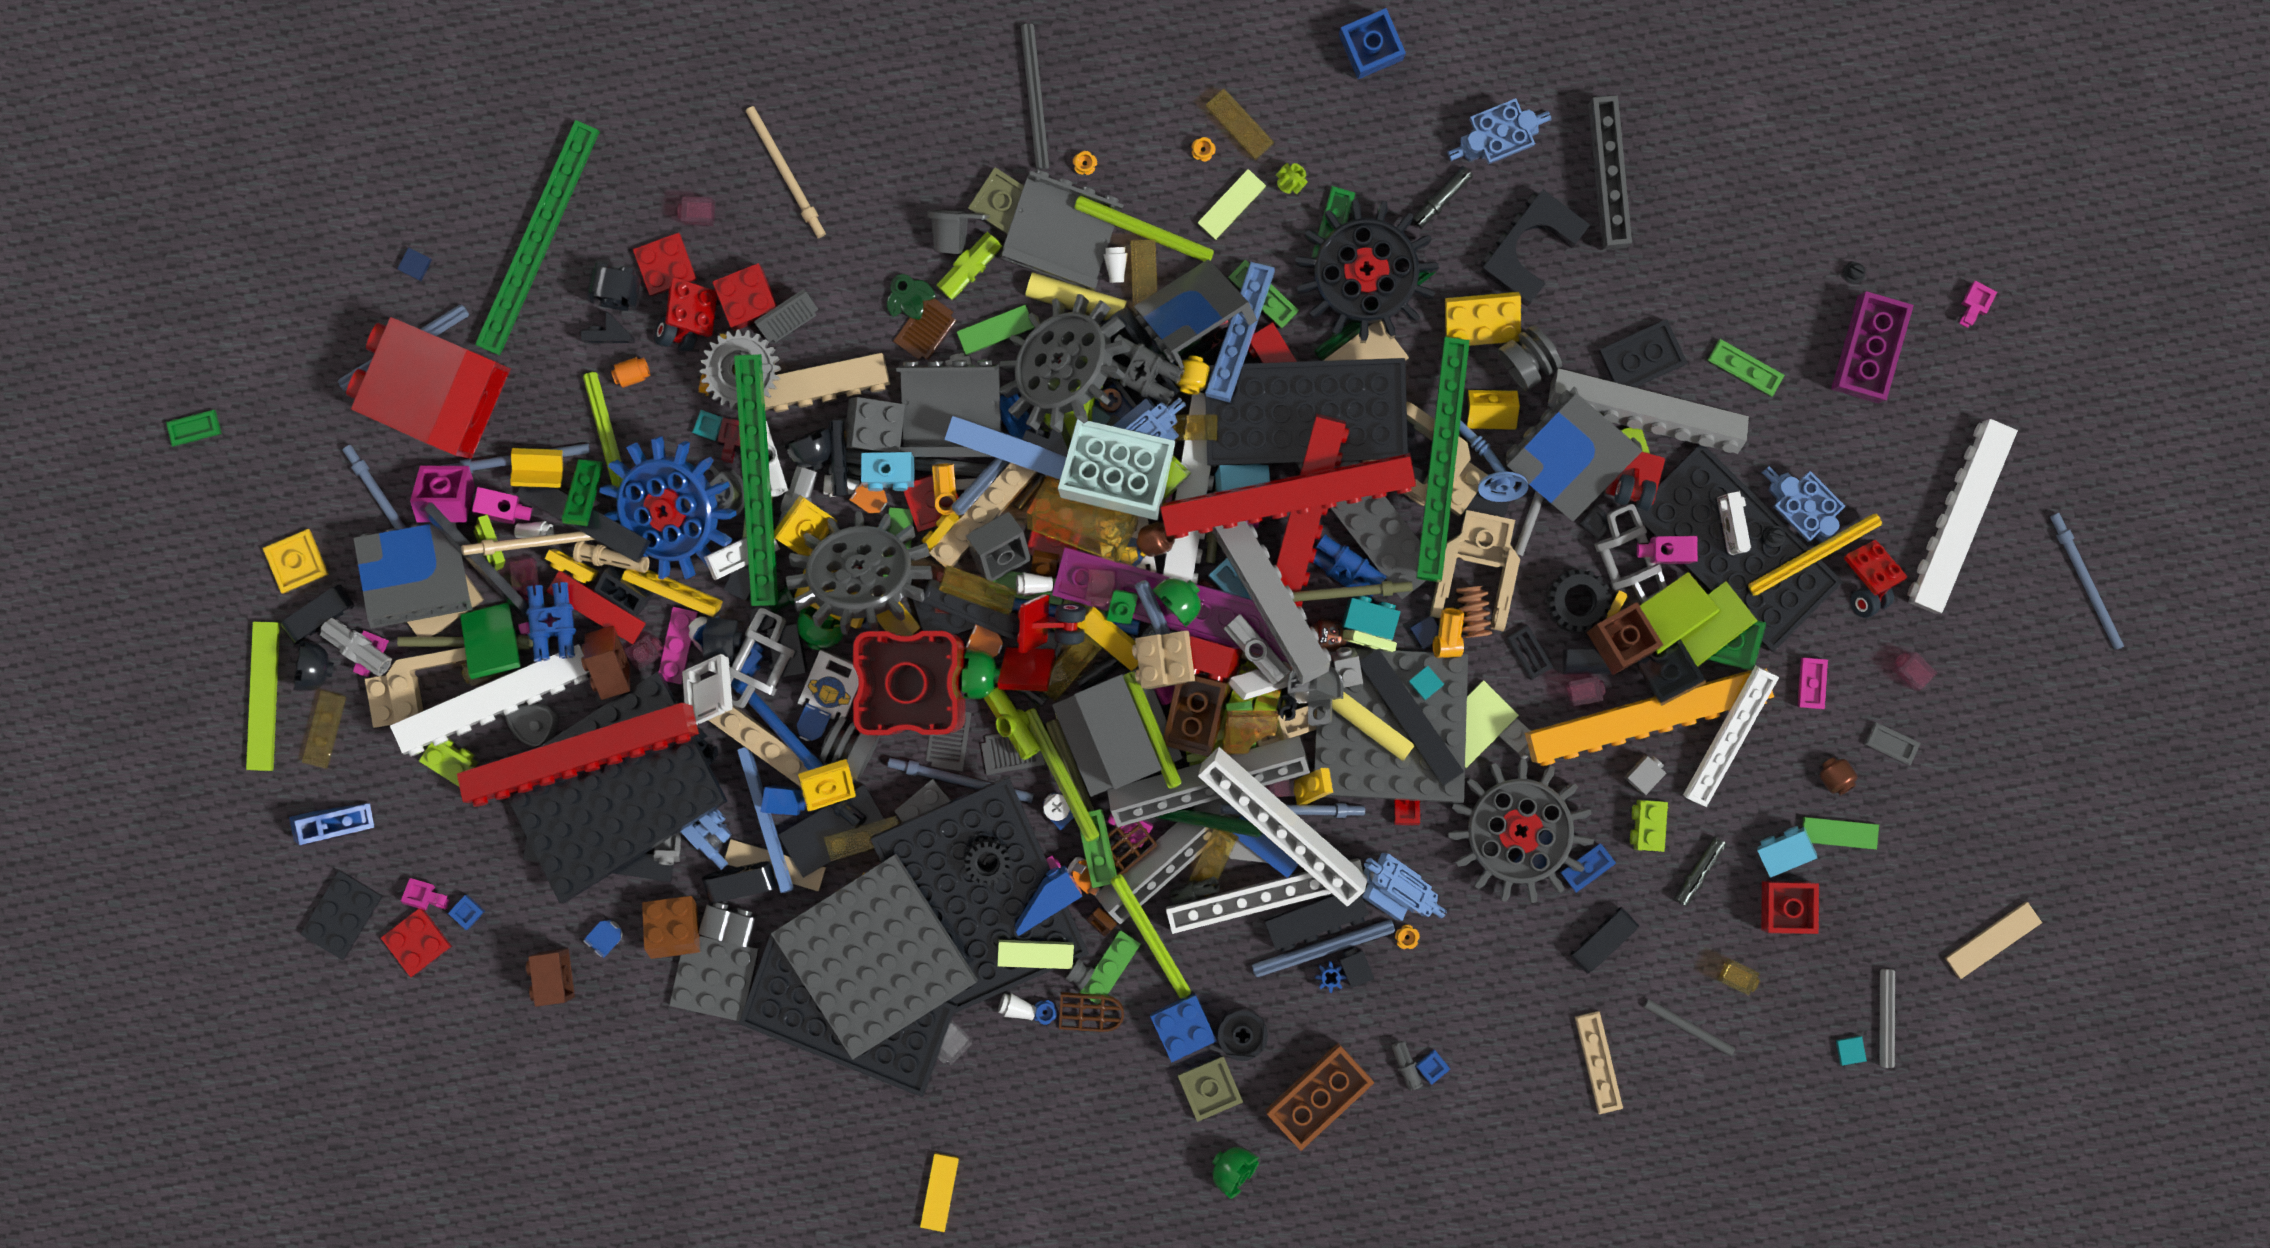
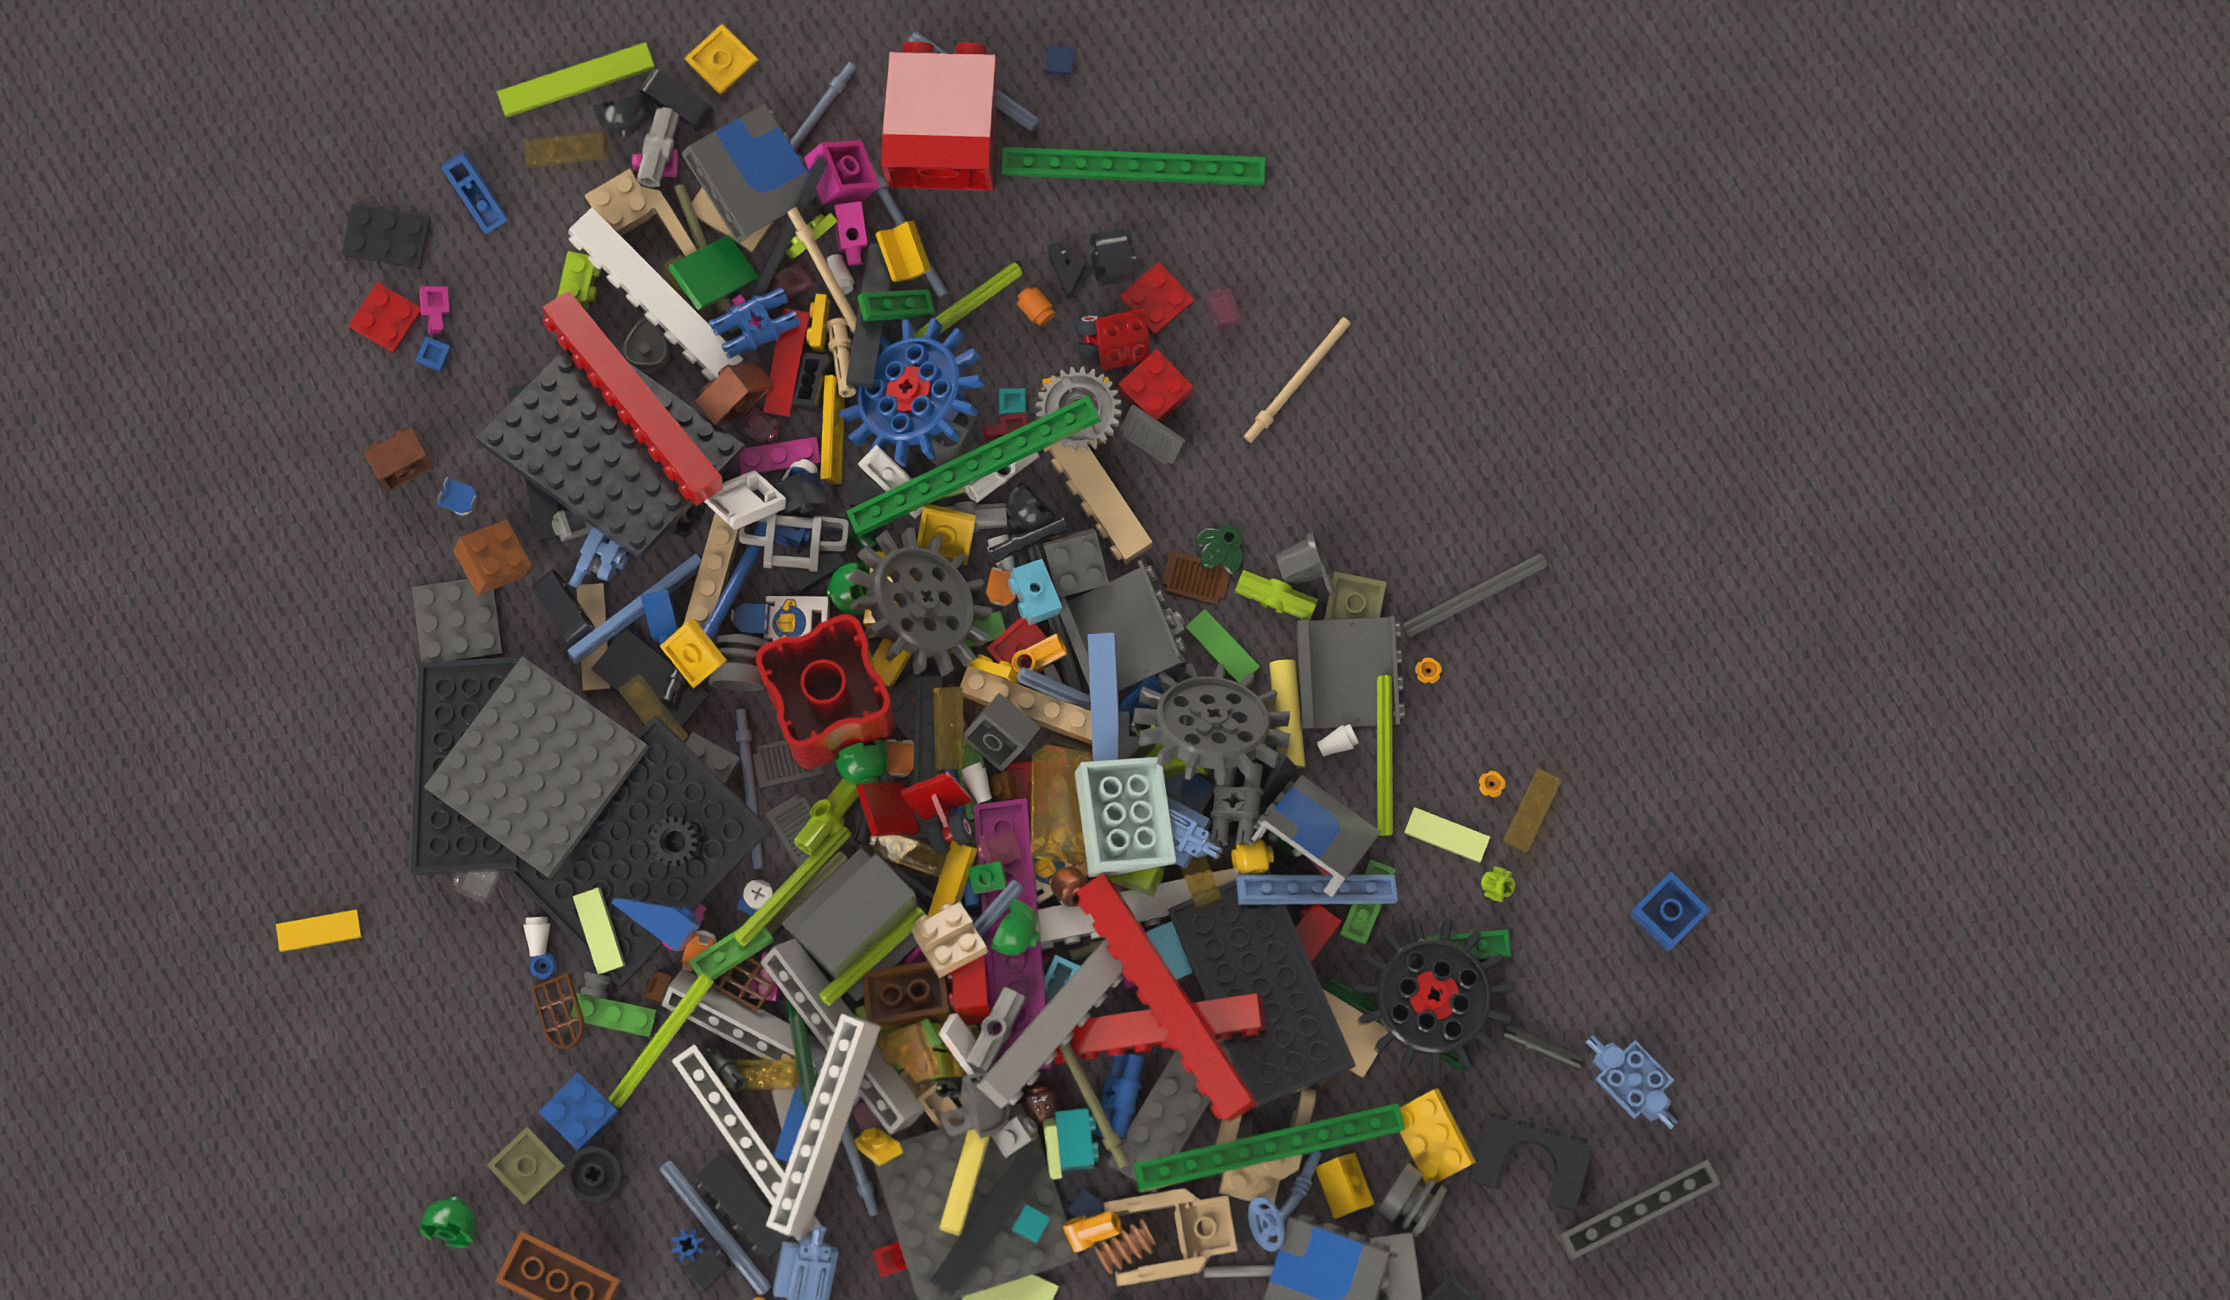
camera: 65 degrees right, 10 degrees down
(727, 924) = (515, 613): dark grey brick -> none
(1117, 396) = (1200, 781): reddish brown bush -> none
(1143, 270) = (1343, 770): clear yellow tile -> none

